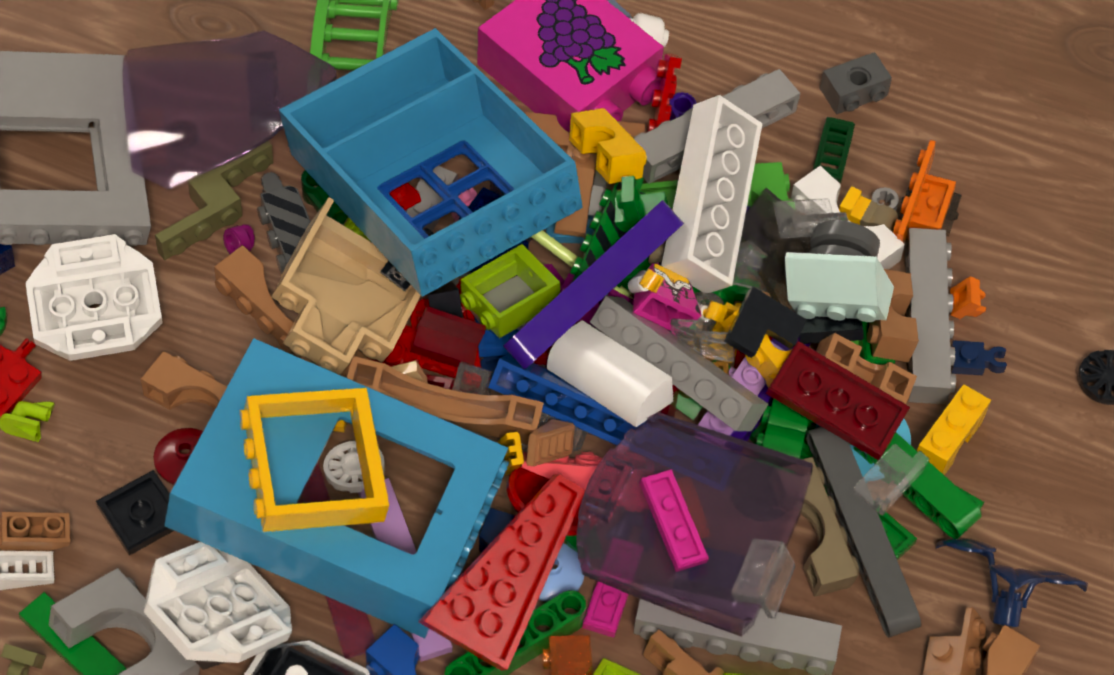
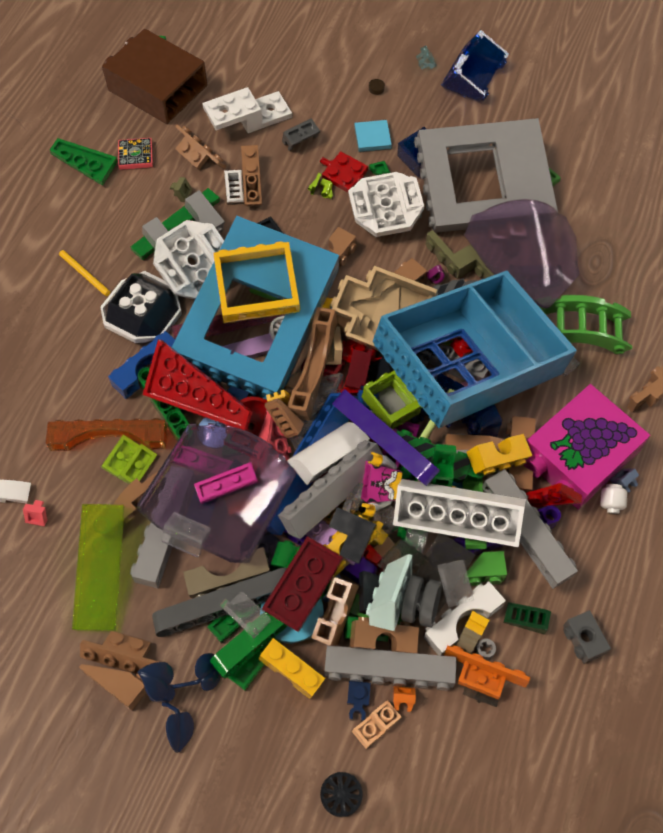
camera: 95 degrees right, 5 degrees up
(1003, 331) = (376, 724): none -> light nougat slope

